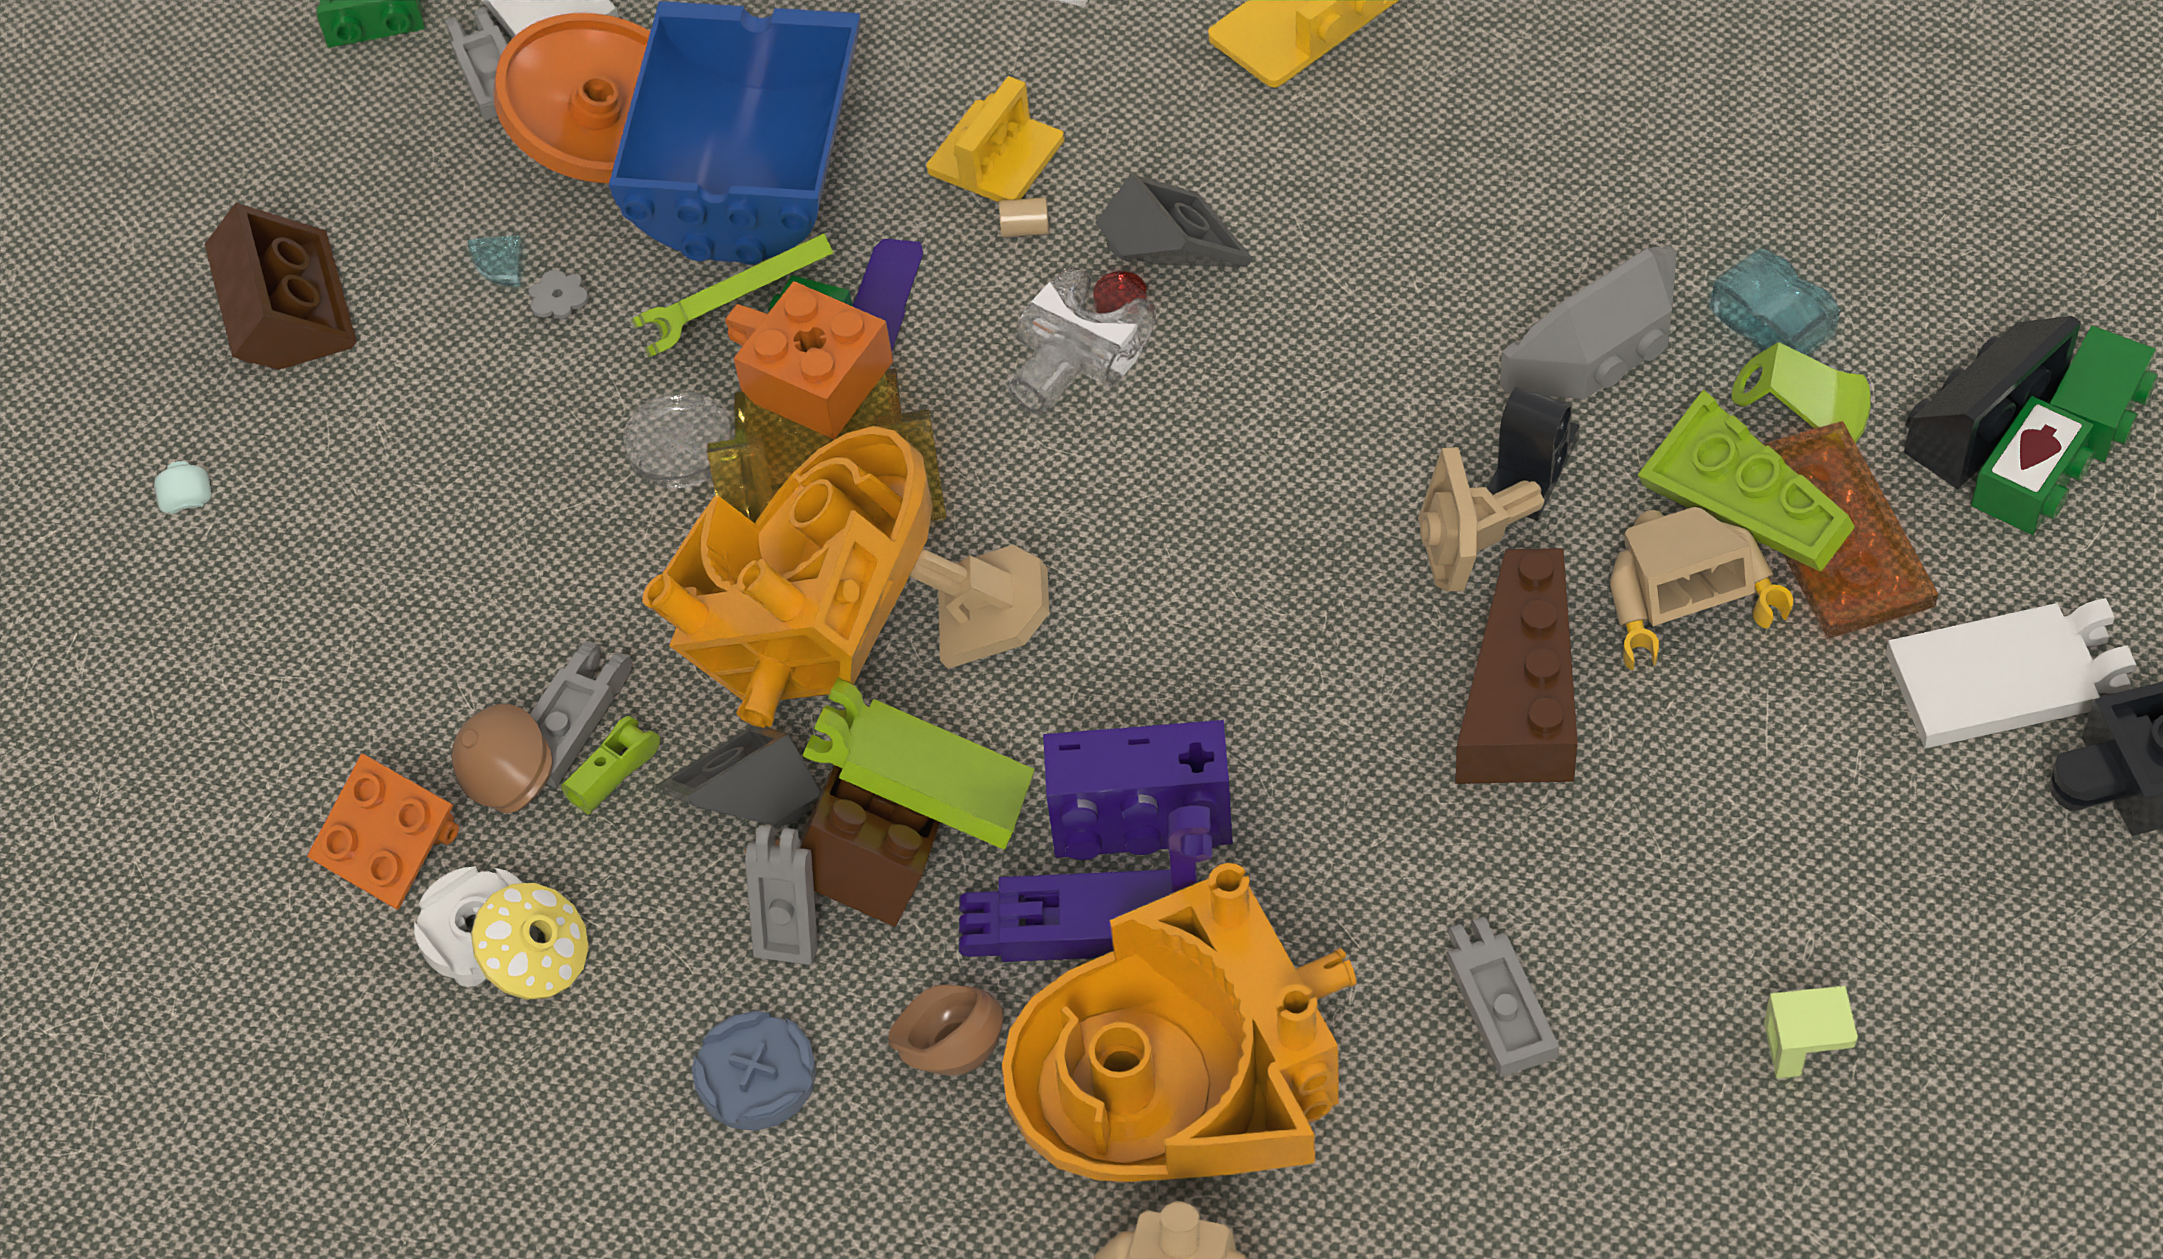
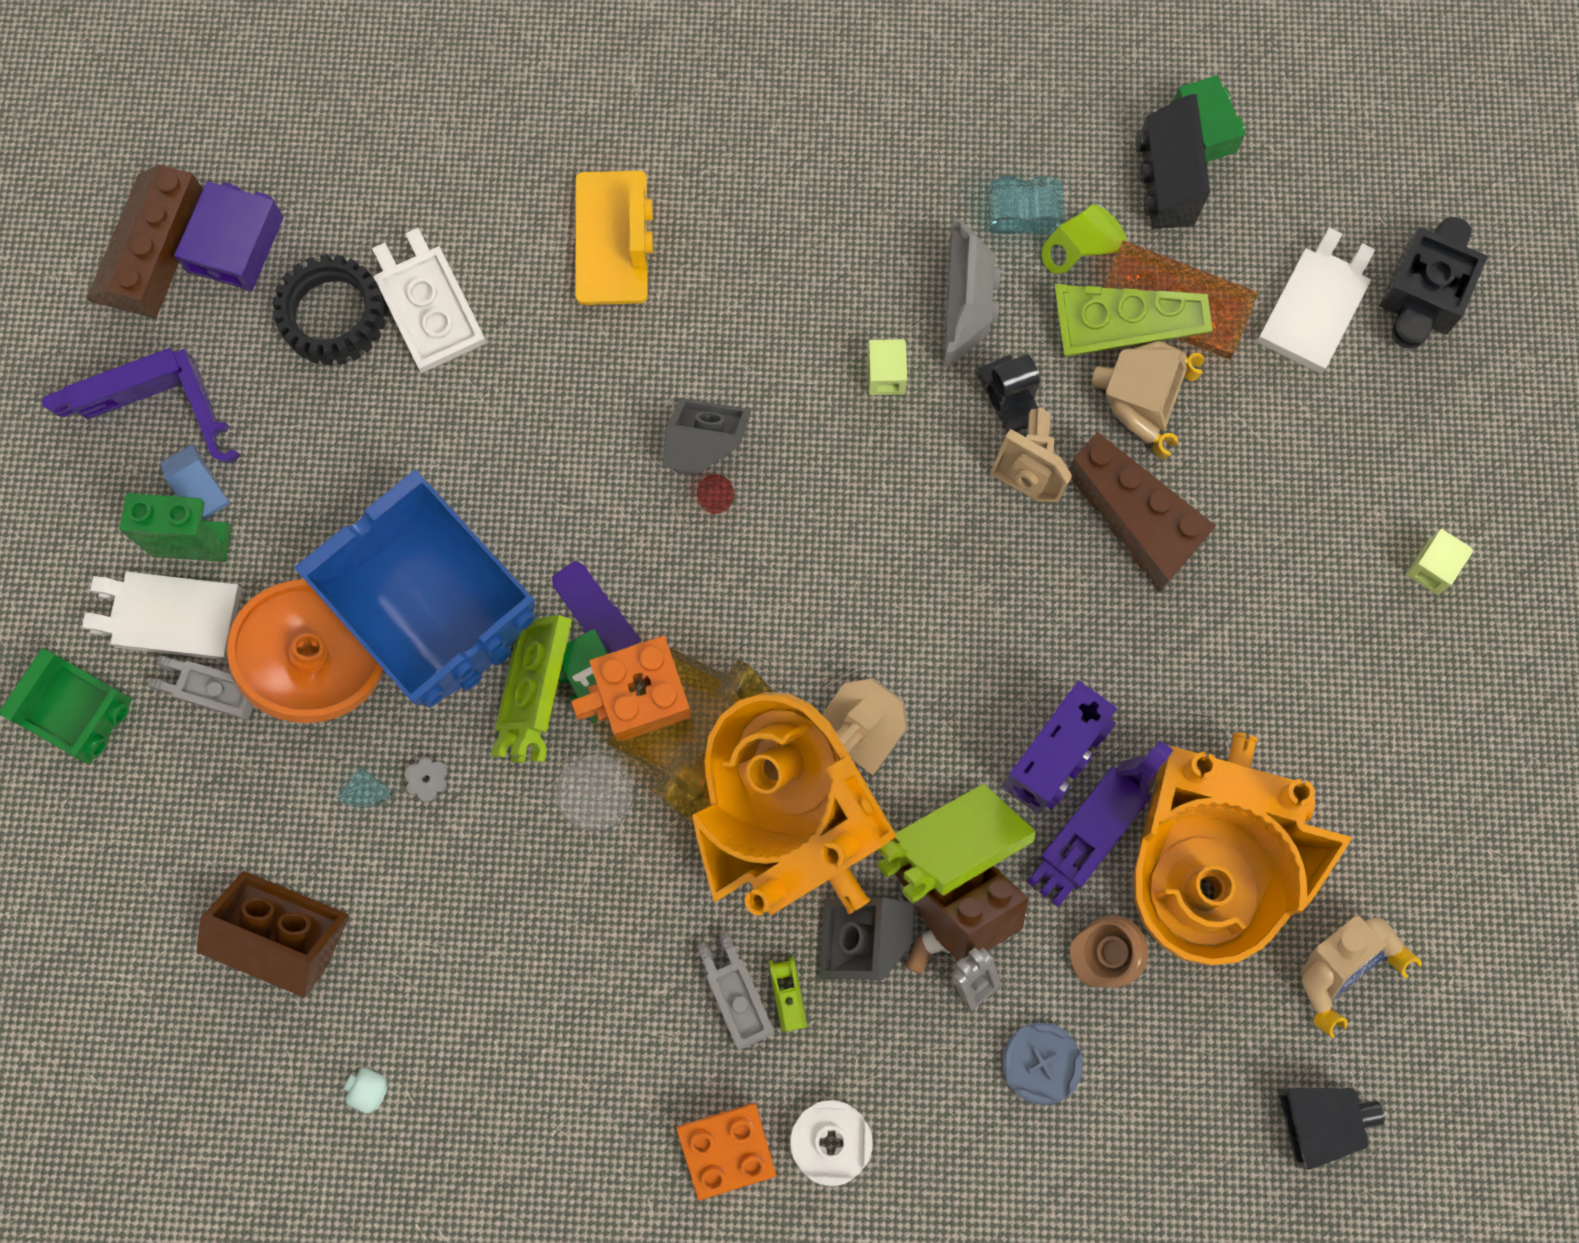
camera: 55 degrees left, 20 degrees up
(501, 758) = (739, 1051): medium nougat hat -> none
(510, 954) = (860, 1126): light yellow dish -> none
(997, 146) = (552, 472): yellow bracket -> none
(1024, 217) = (615, 496): tan hinge -> none
(1075, 341) = (729, 544): clear connector -> none
(1423, 322) = (887, 367): none -> yellowish green panel
(1500, 999) = (1304, 679): light grey hinge -> none
(2033, 465) = (1231, 193): green brick -> none

